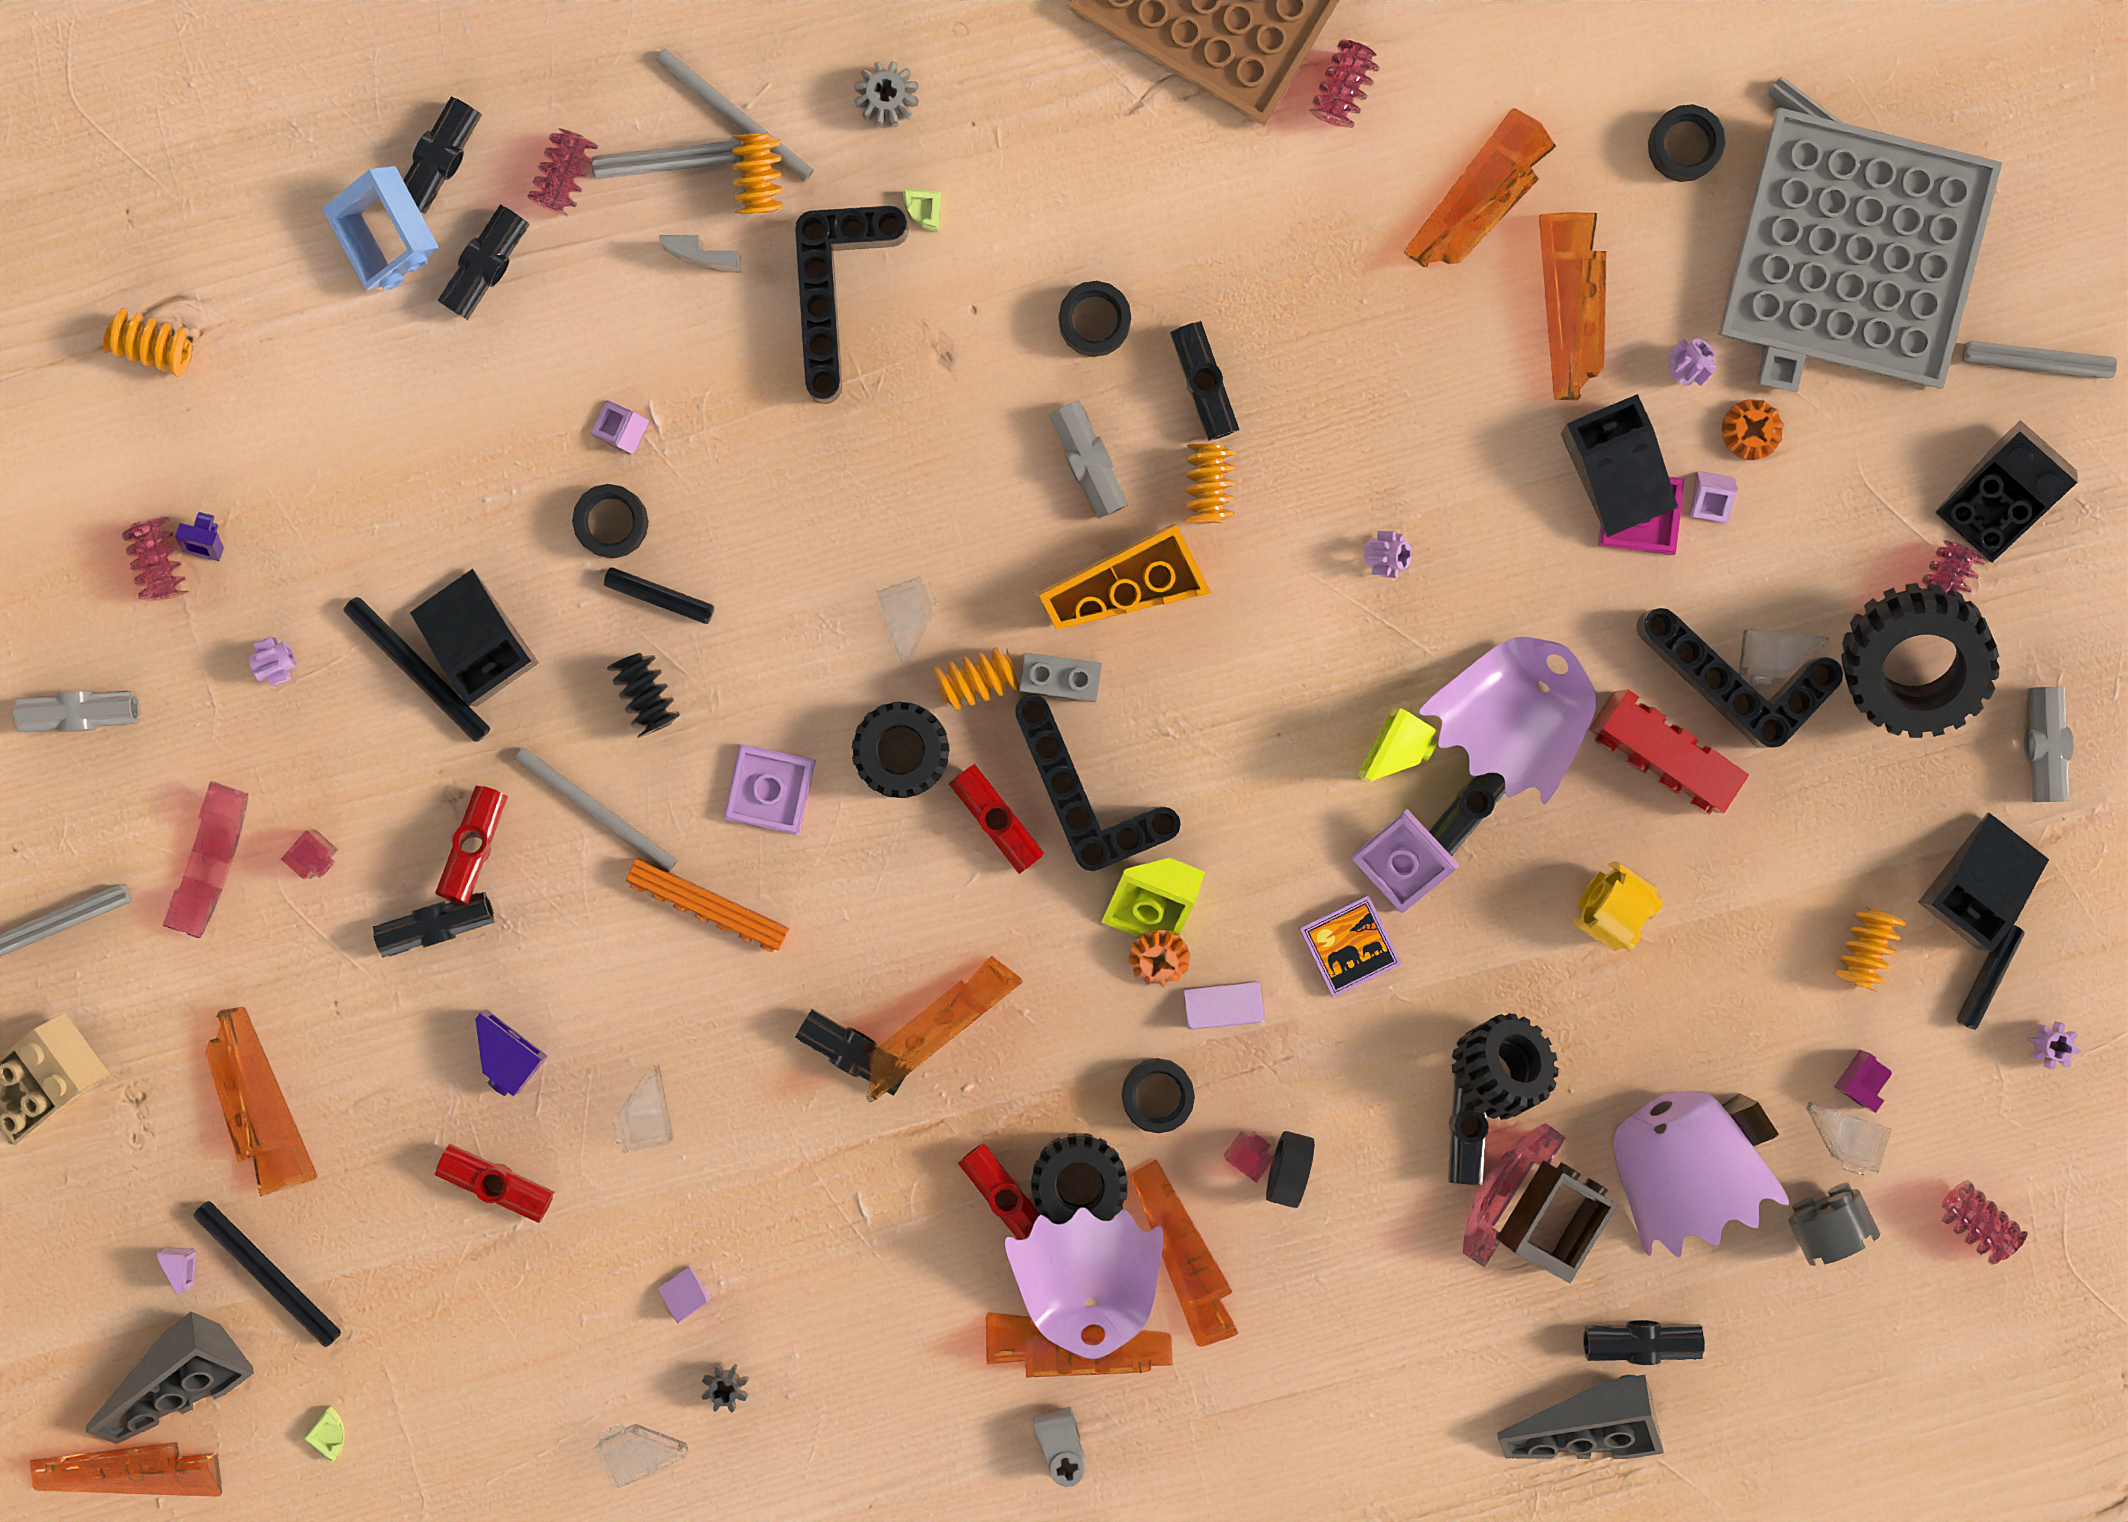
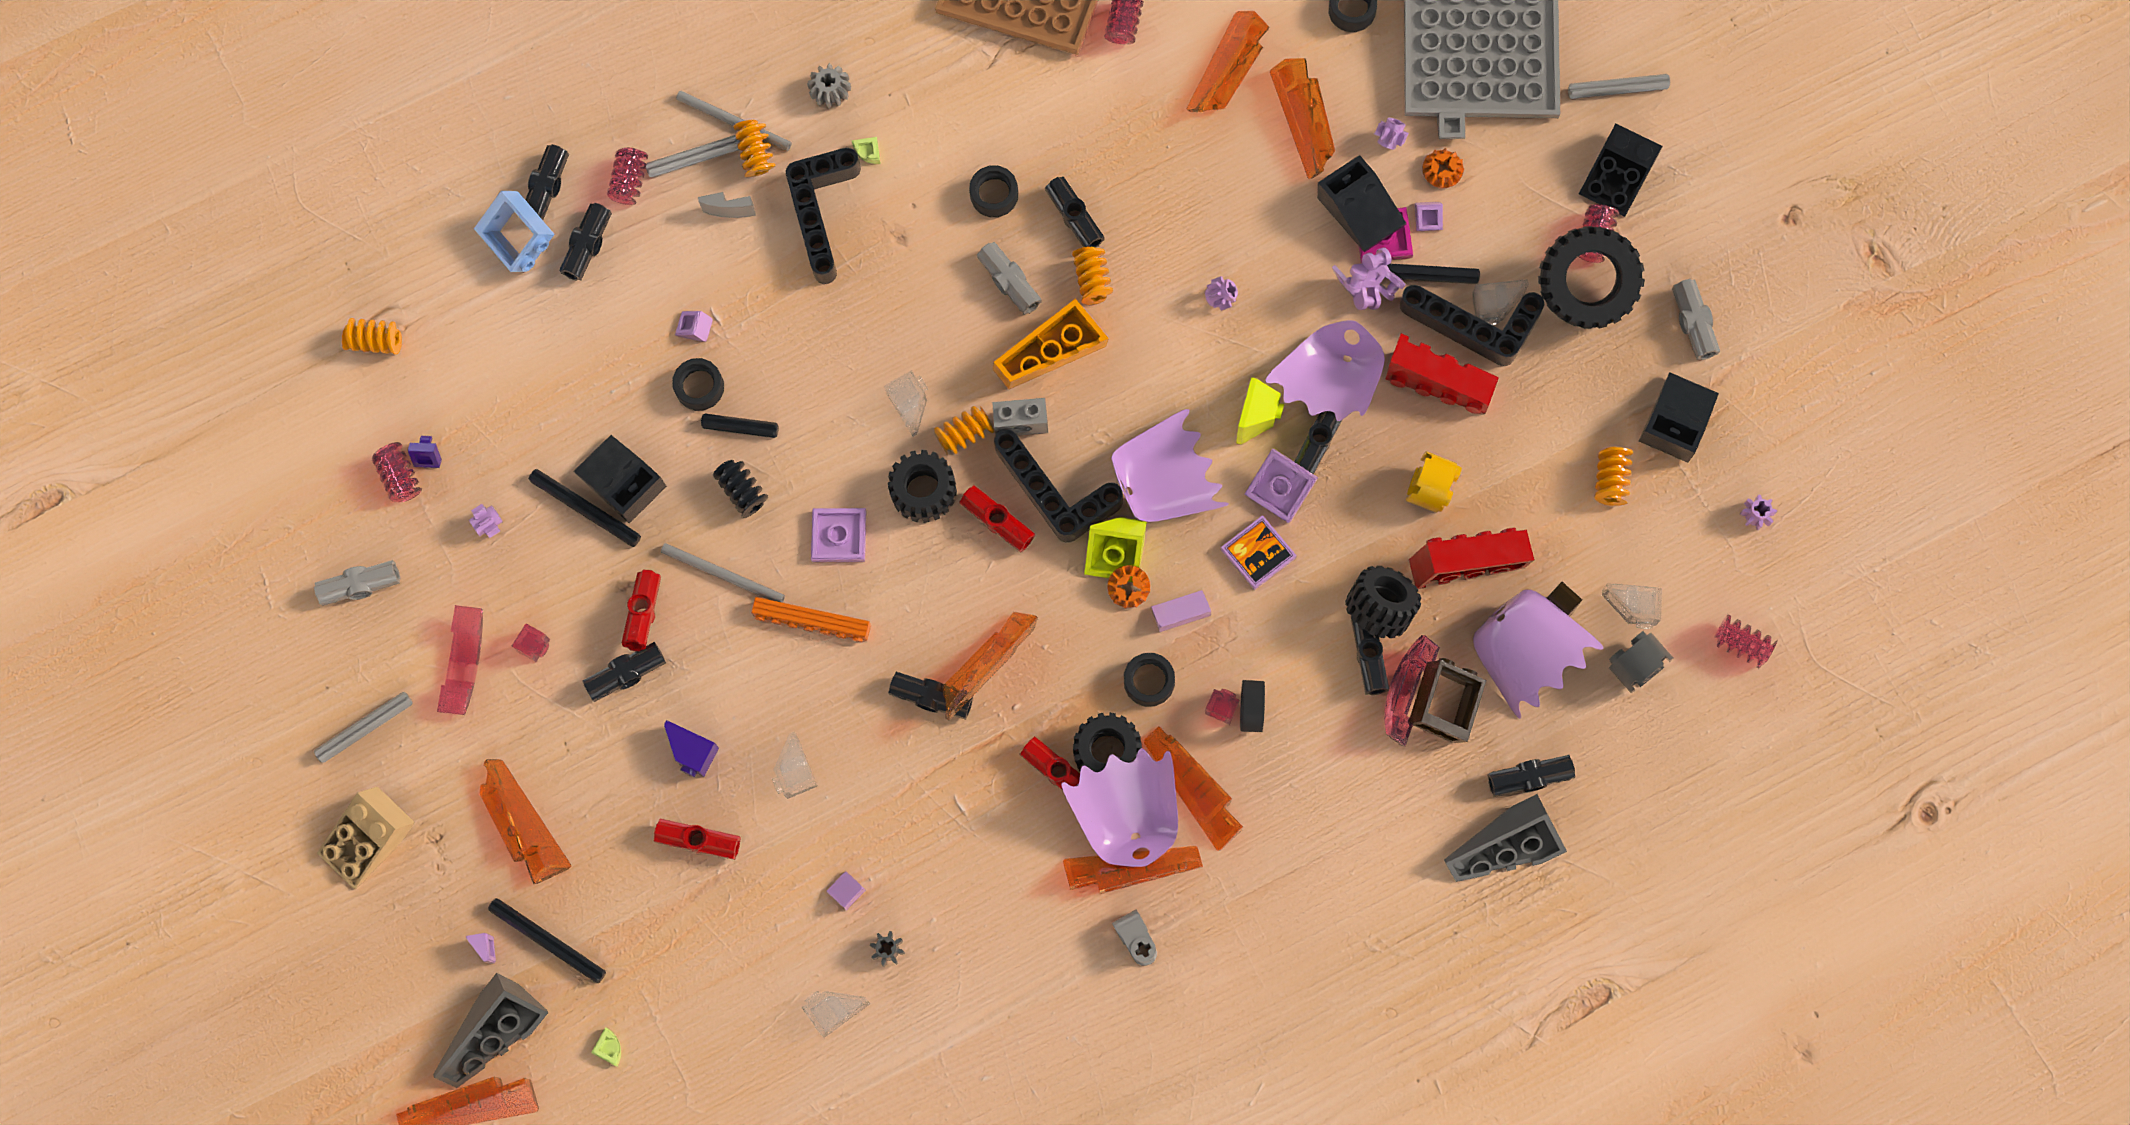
camera: 10 degrees left, 15 degrees down
(1247, 807) = (1165, 472): none -> lavender piece
(1603, 585) = (1369, 276): none -> lavender piece
(1642, 1024) = (1471, 556): none -> red wedge
(1689, 587) = (1435, 273): none -> black axle
(1864, 1081) = (1635, 565): magenta panel -> none
(1989, 979) = (1702, 478): black axle -> none

